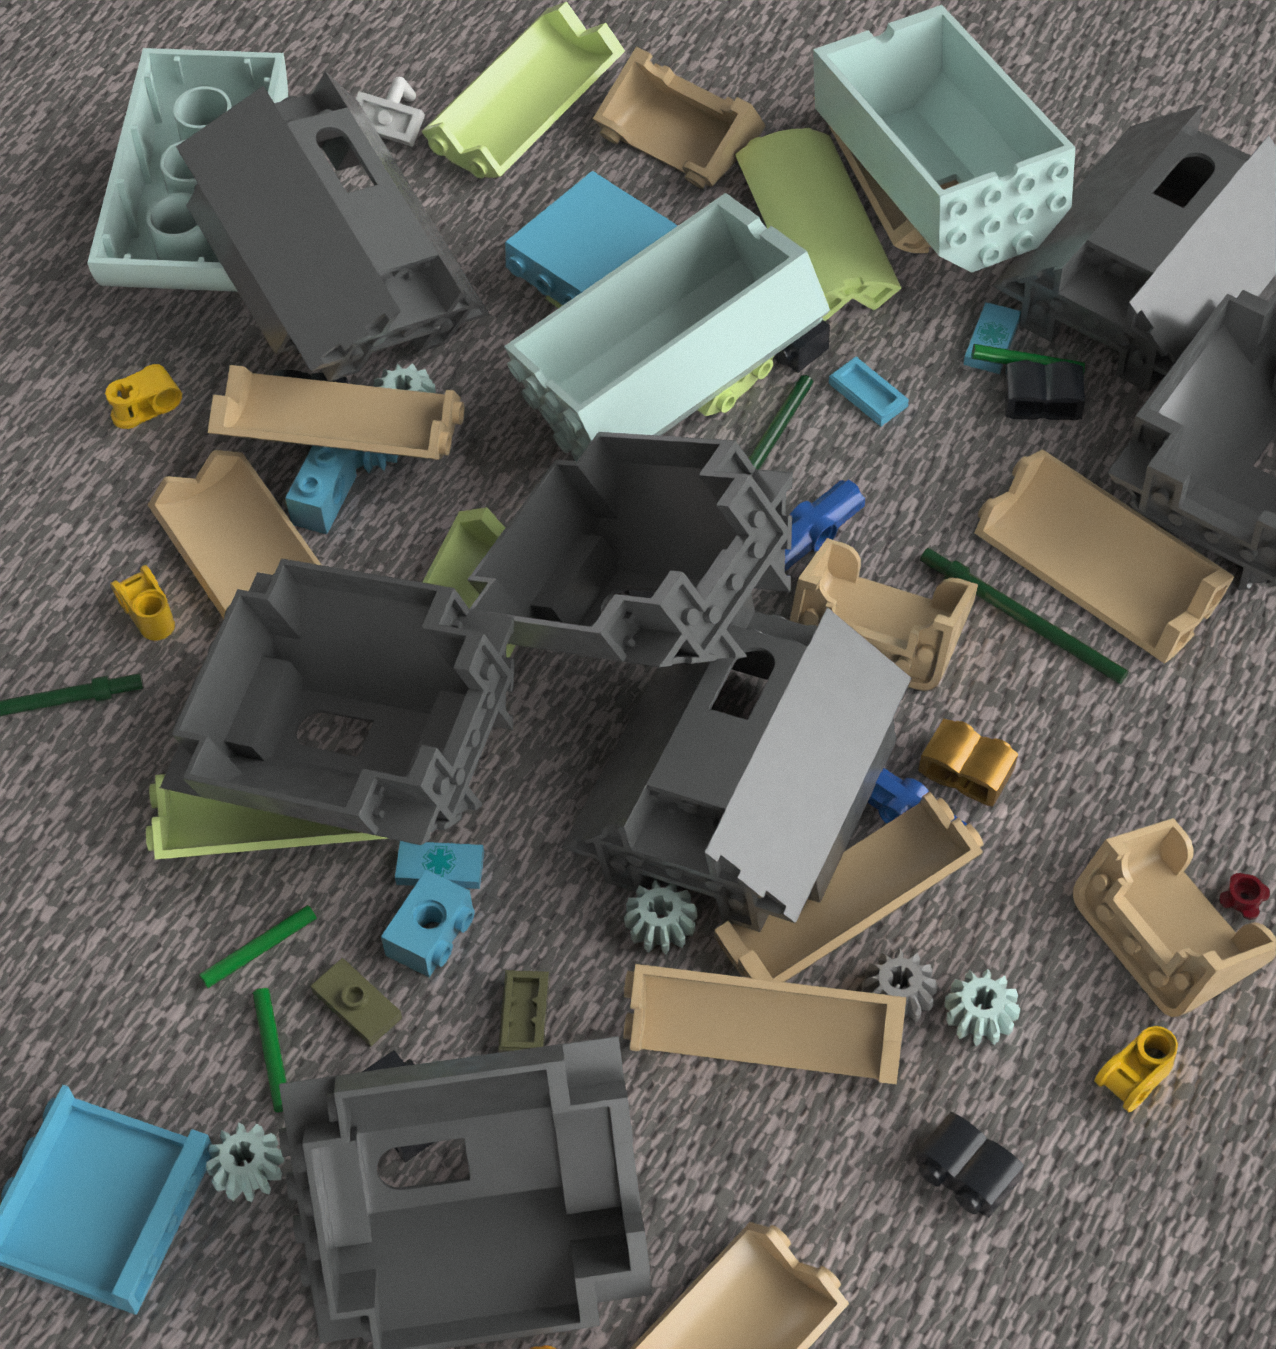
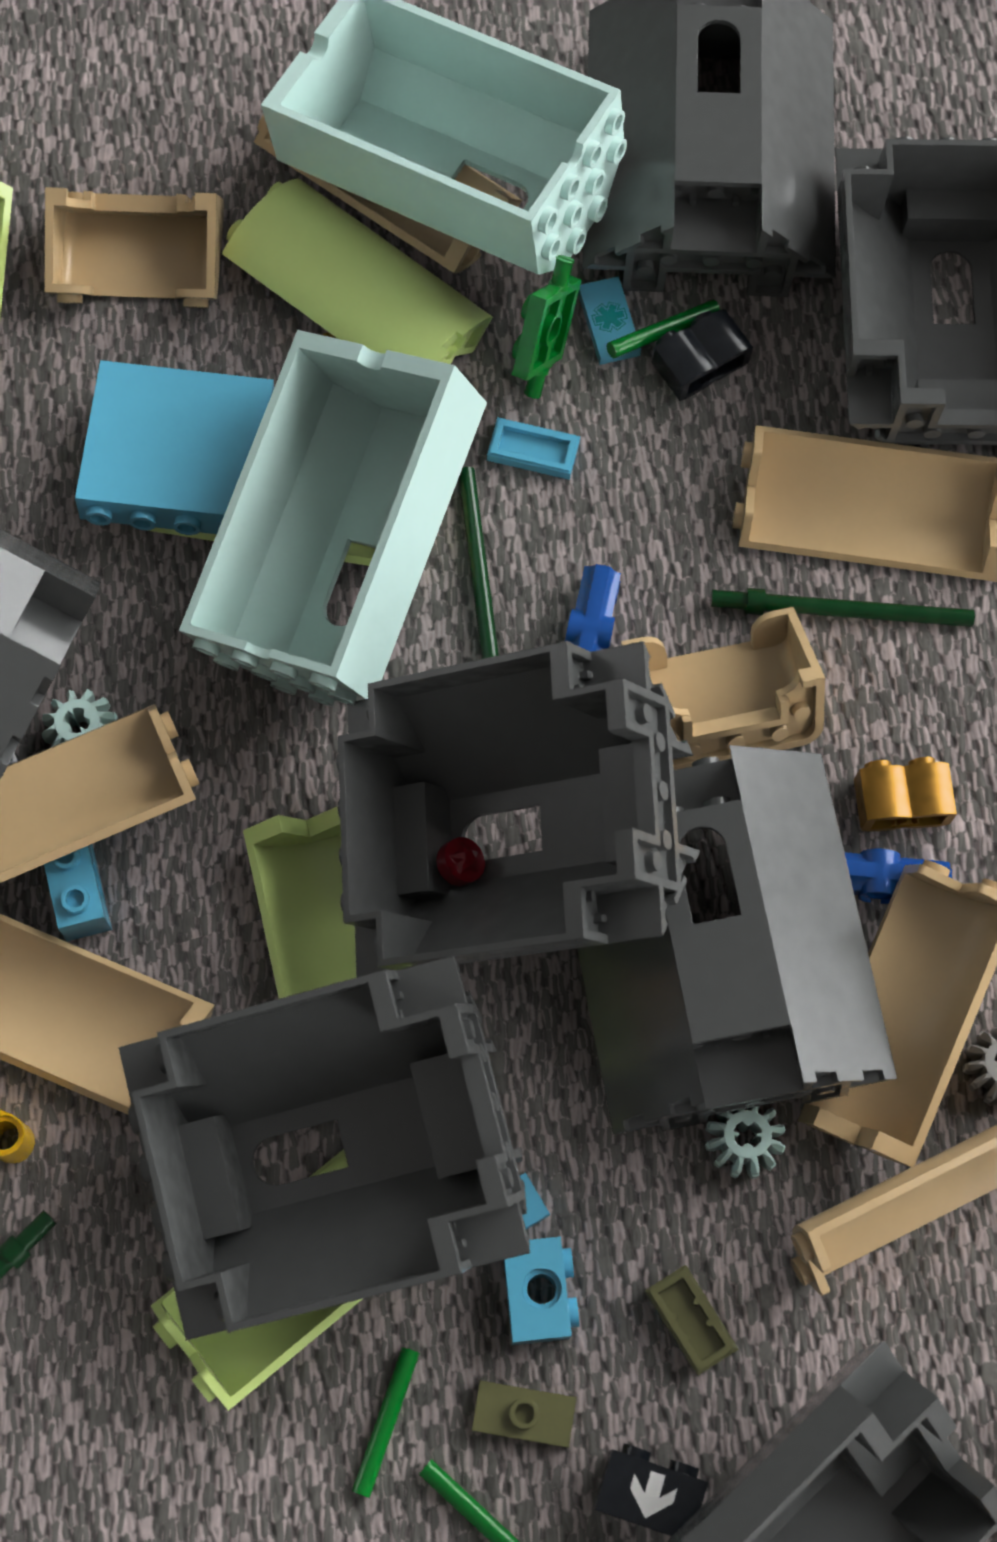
camera: 40 degrees left, 15 degrees up
(587, 602) = (460, 861): none -> dark red tile
(929, 304) = (545, 327): none -> green plate

